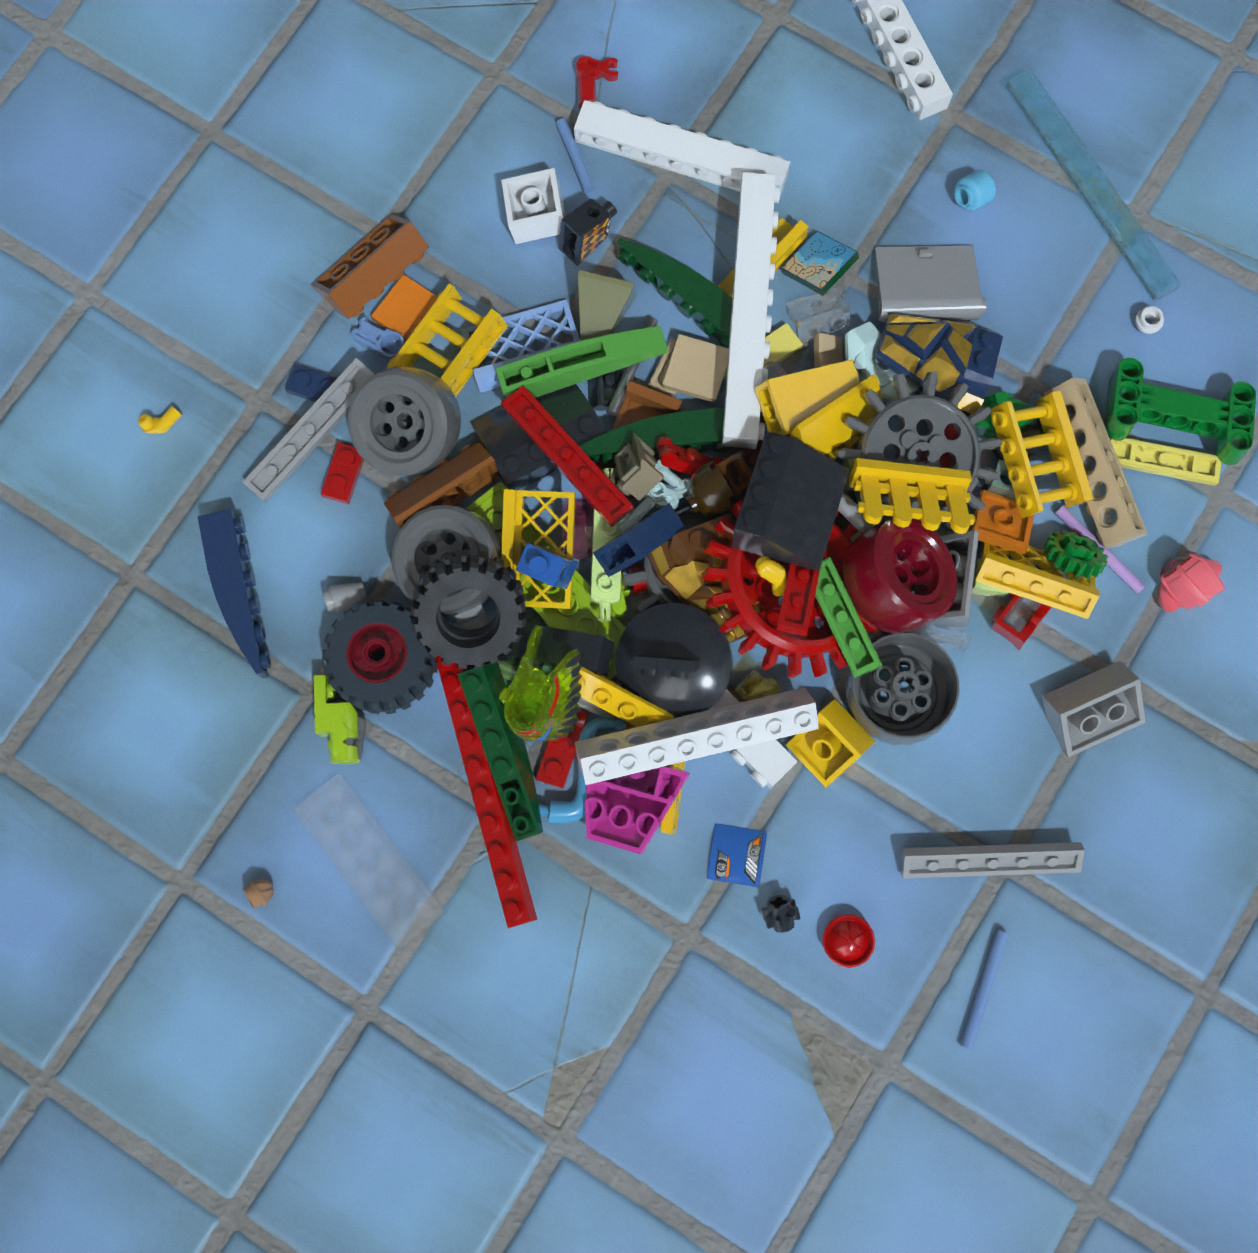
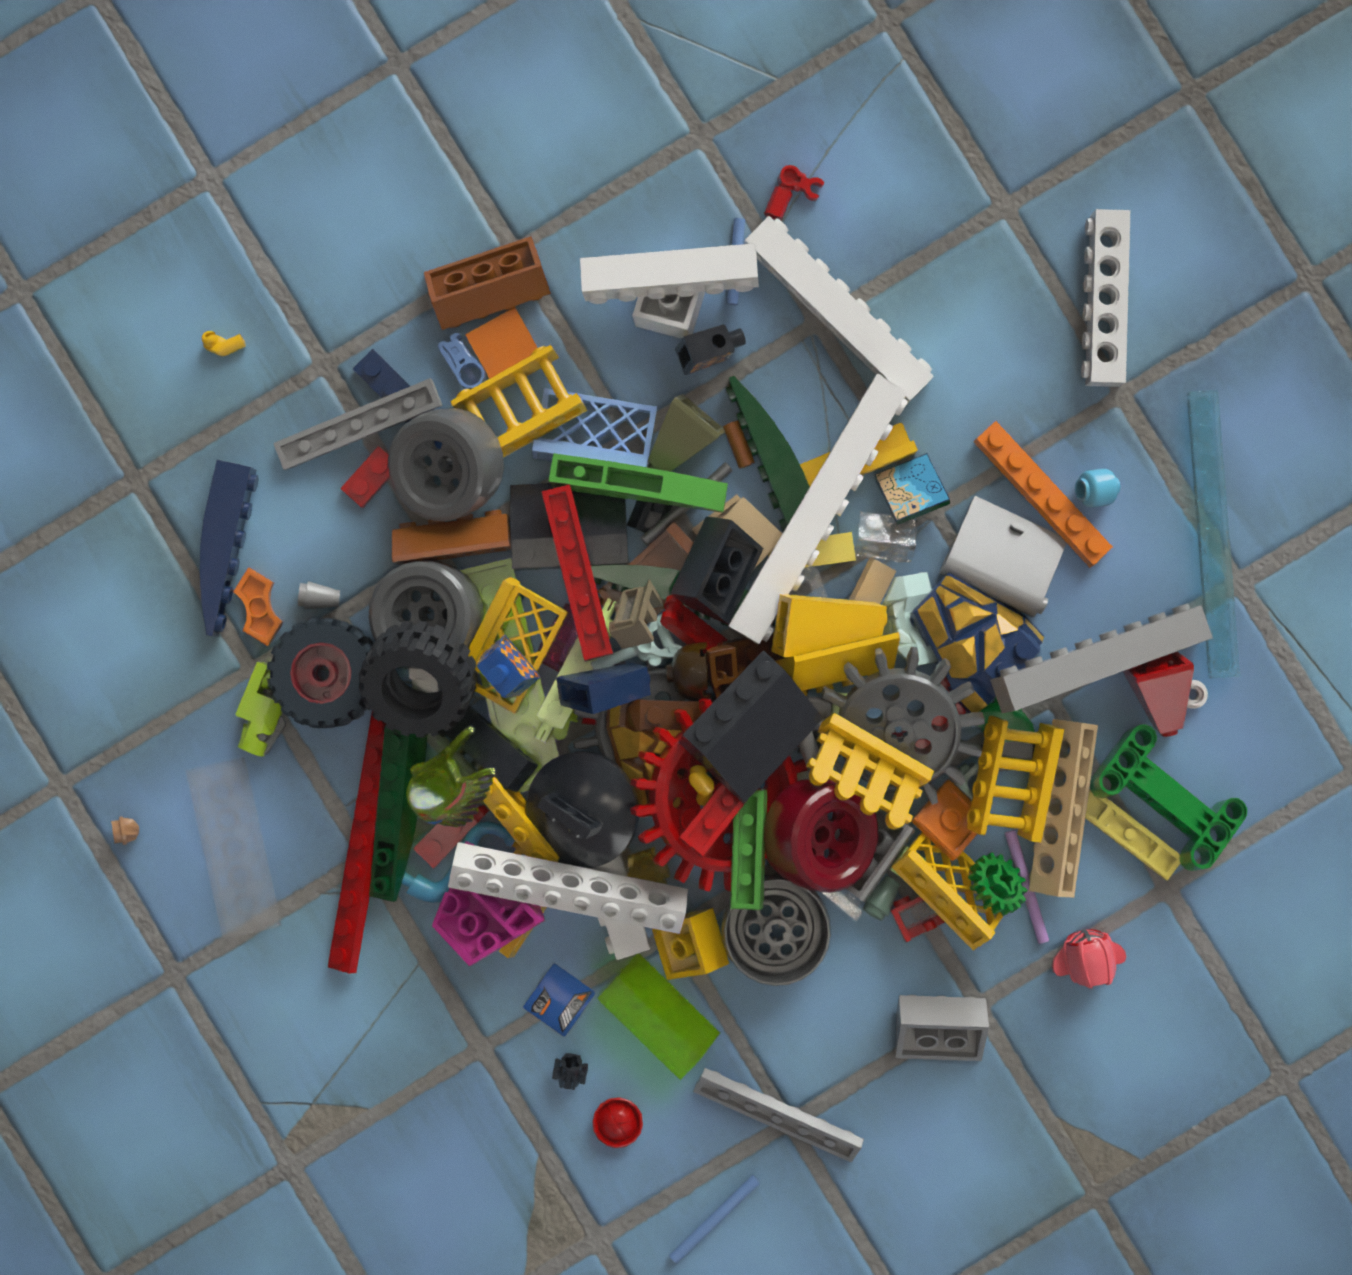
camera: 25 degrees right, 10 degrees up
(301, 643) = (261, 619): none -> orange tile
(523, 174) = (669, 273): none -> white brick
(653, 297) = (738, 444): none -> dark orange hinge
(688, 397) = (717, 569): none -> black slope
(836, 822) = (658, 1015): none -> clear neon green slope
(932, 218) = (1043, 494): none -> orange plate
(980, 620) = (881, 899): none -> sand green cone
(1057, 317) = (1100, 659): none -> light grey brick
(1122, 324) = (1163, 690): none -> slope

